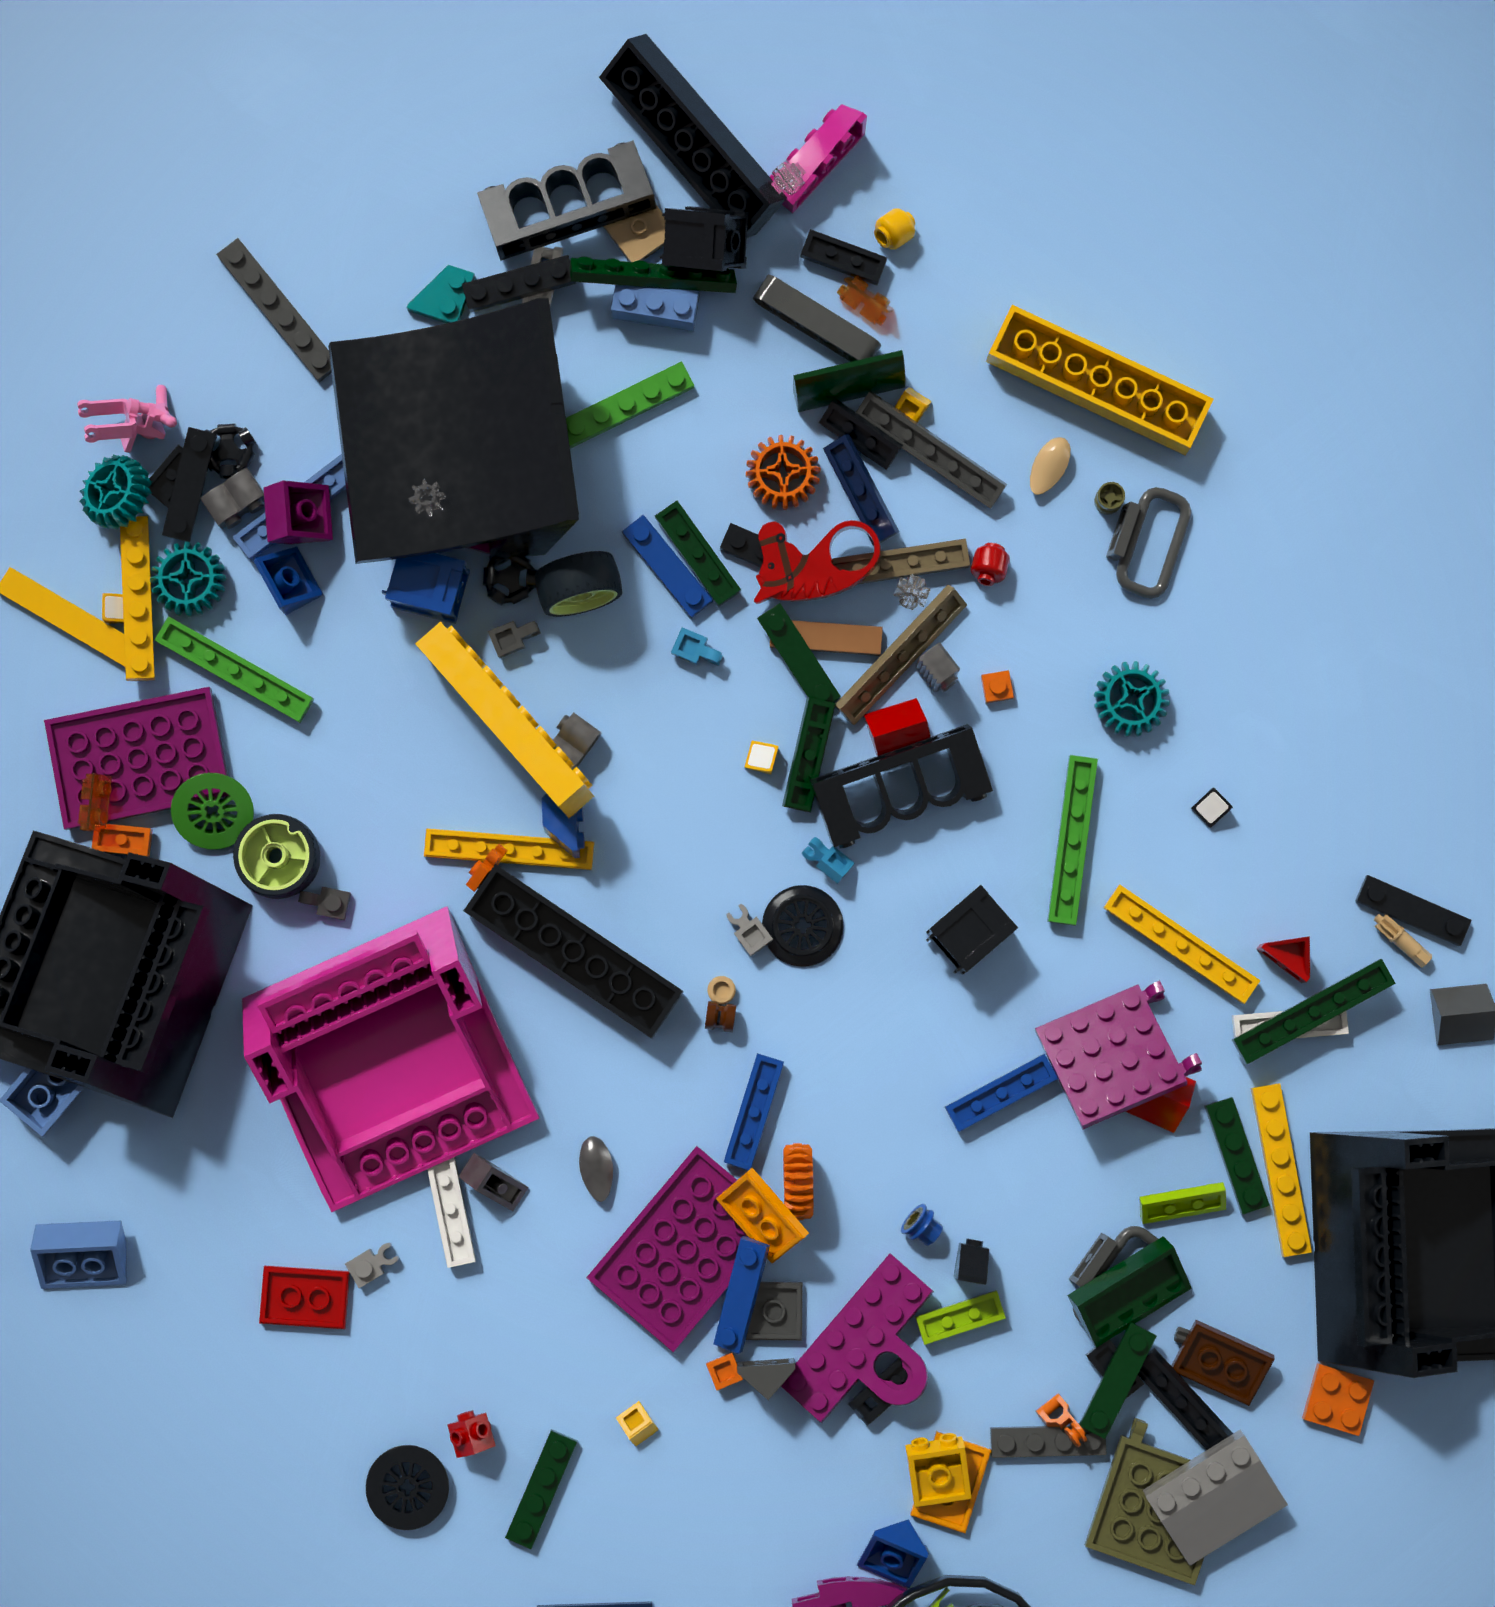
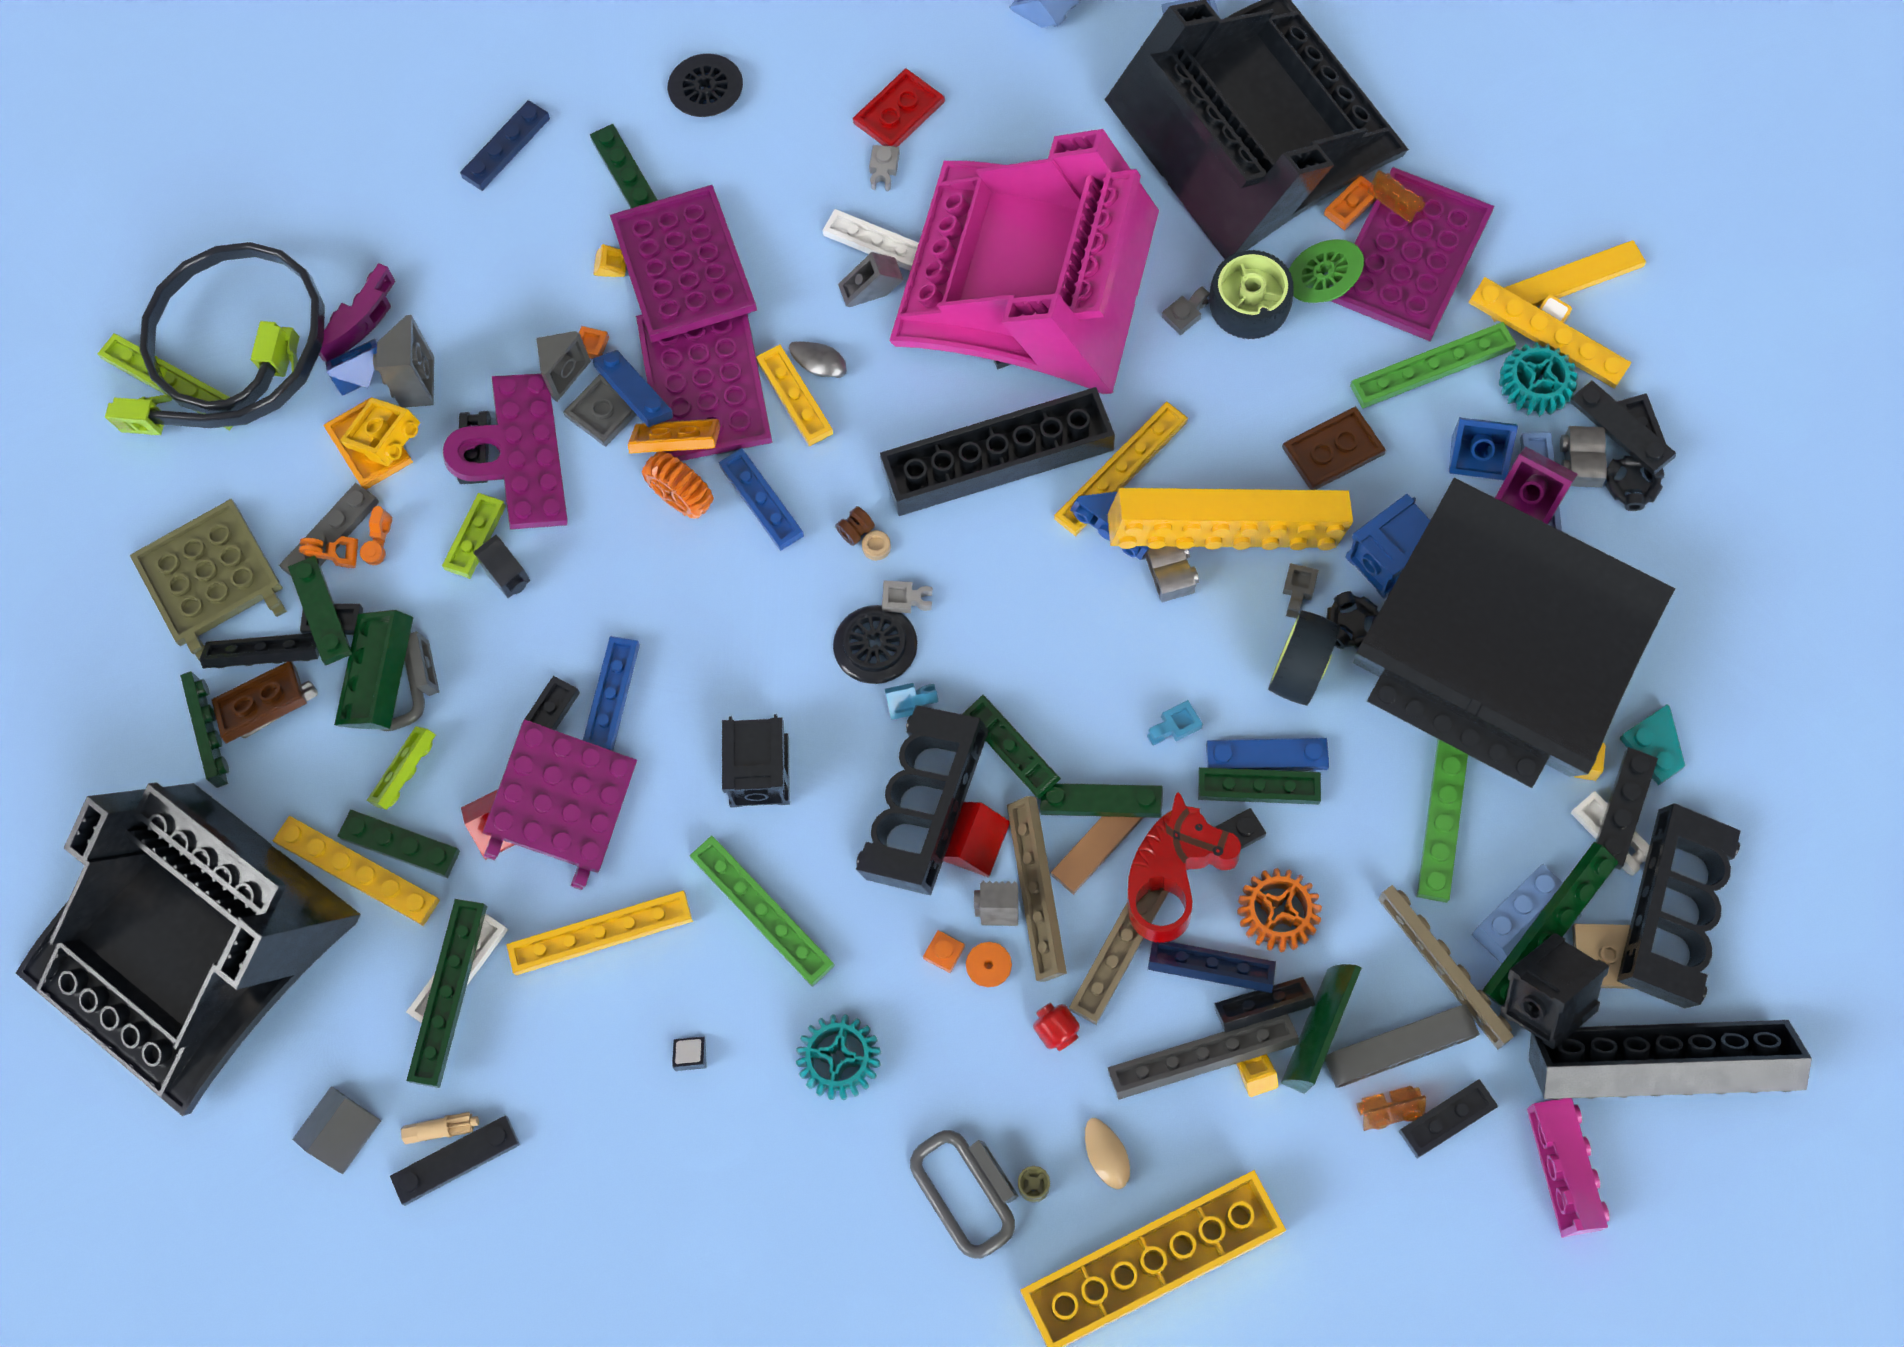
camera: 135 degrees right, 15 degrees down
(115, 492) = (1655, 368): teal gear -> none
(147, 424) = (1710, 423): bright pink piece -> none
(277, 308) = (1748, 602): dark grey plate -> none
(367, 696) = (1333, 448): none -> reddish brown tile
(427, 490) = (1469, 560): clear gear -> none
(471, 1434) = (702, 145): red brick -> none
(482, 869) = (1121, 432): orange plate -> none
(596, 1353) = (682, 263): none -> magenta plate
(643, 1160) = (794, 395): none -> yellow plate
(730, 341) = (1453, 975): none -> dark tan plate
(761, 757) = (1039, 711): white slope -> none
(788, 178) = (1563, 1110): clear gear -> none
(869, 1495) = (406, 364): none -> dark grey slope
(894, 229) = (1443, 1187): yellow head -> none
(912, 592) = (1084, 938): clear gear -> none
(922, 1225) = (565, 556): blue piece -> none
(982, 647) = (988, 964): none -> orange piece
(1035, 1388) = (379, 523): none -> orange piece
(1048, 1129) = (553, 704): none -> black plate
(1215, 1497) = (172, 611): light grey slope -> none
(1280, 1376) = (207, 737): none -> dark green plate
(1290, 955) = (513, 1014): red slope -> none
(1338, 1399) = (151, 763): orange plate -> none

